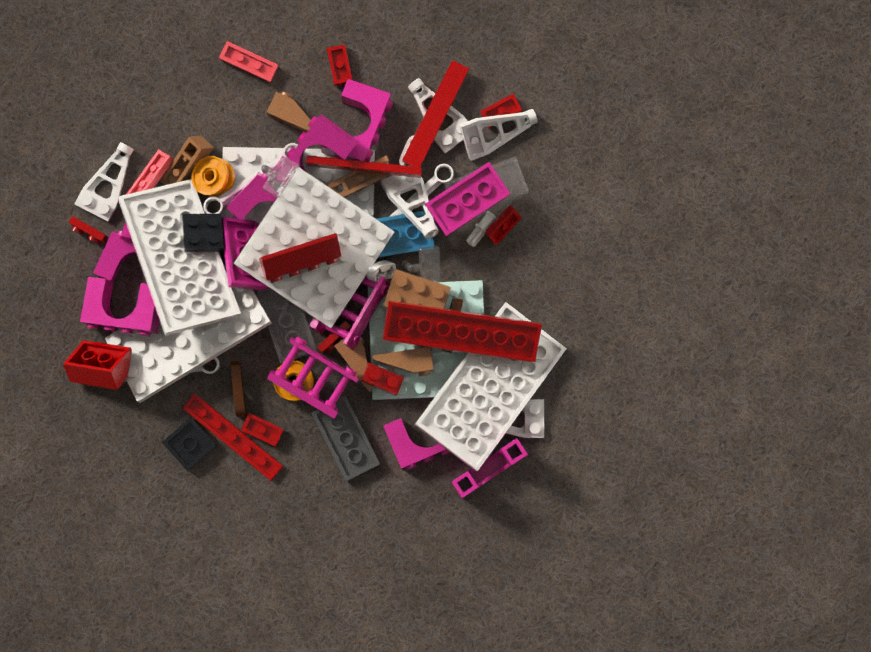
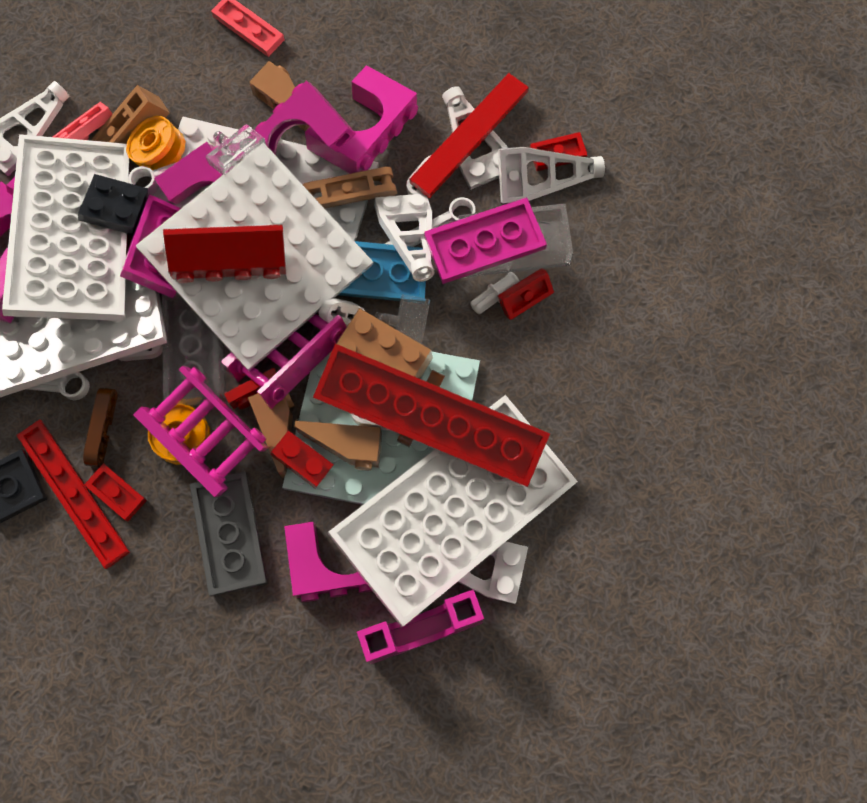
camera: 20 degrees right, 10 degrees down
(339, 64) = (361, 50): red plate -> none
(363, 166) = (355, 169): red tile -> none

